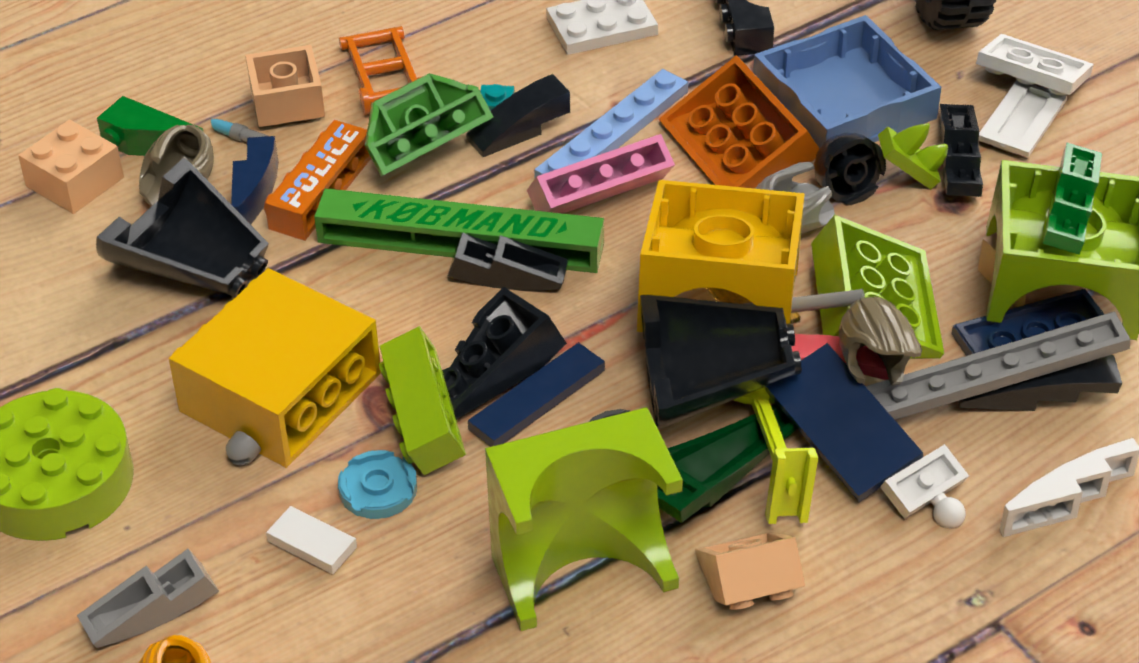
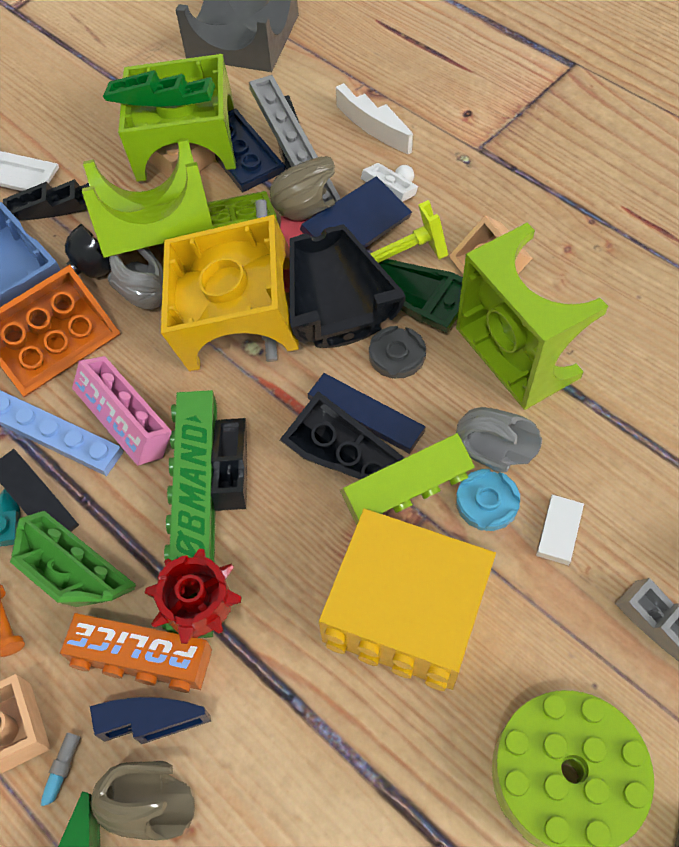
camera: 100 degrees left, 15 degrees up
(188, 236) = (254, 751): black cone -> none
(242, 449) = (490, 611): light grey hinge -> none
(338, 192) = (203, 612): none -> red brick
(445, 486) = (499, 438): none -> light grey hair
(889, 208) = (147, 218): none -> lime piece
(905, 152) = (75, 210): lime tile -> none

